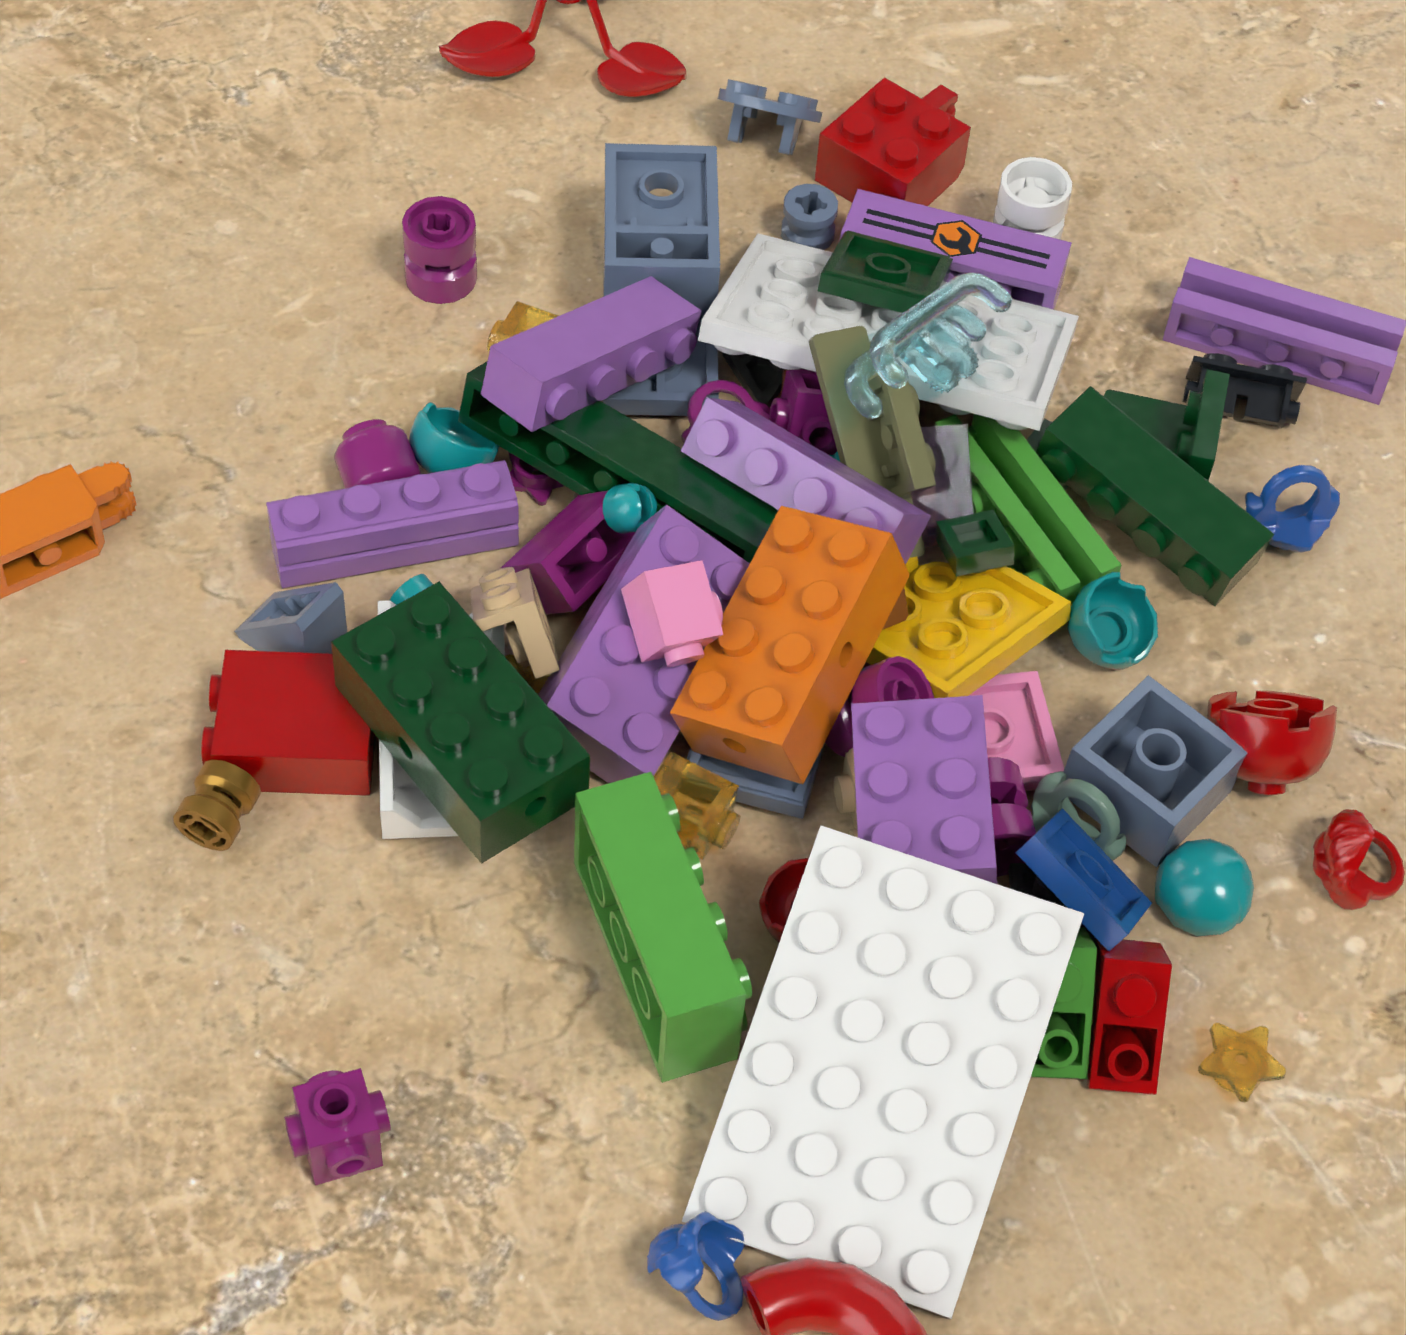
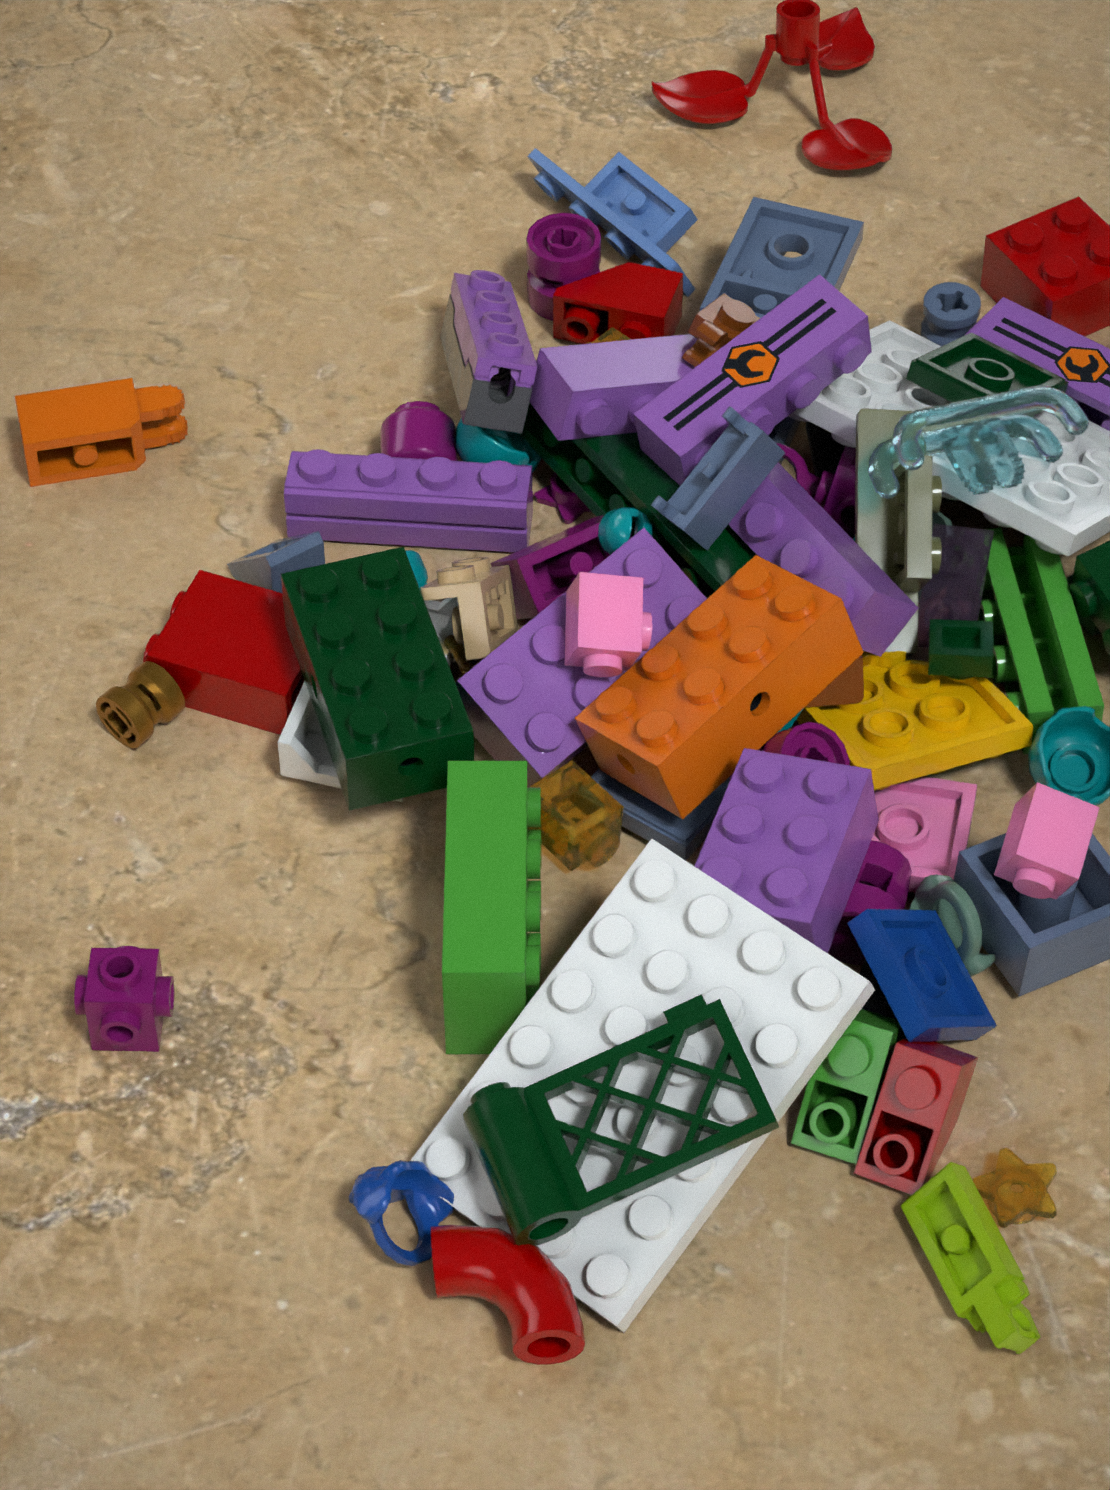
camera: 25 degrees right, 5 degrees down
(418, 356) = (488, 352): none -> medium lavender piece
(476, 174) = (628, 205): none -> medium blue bracket
(506, 271) = (628, 297): none -> red slope
(645, 284) = (717, 326): none -> dark orange plate
(699, 333) = (759, 373): none -> medium lavender brick
(713, 437) = (721, 480): none -> sand blue hinge
(789, 107) = (937, 193): sand blue plate -> none
(826, 1185) = (526, 1145): none -> dark green piece
(1161, 722) = (1046, 842): none -> bright pink brick
(1204, 887) = (1056, 1025): teal hair -> none
(1235, 1142) = (971, 1258): none -> lime hinge

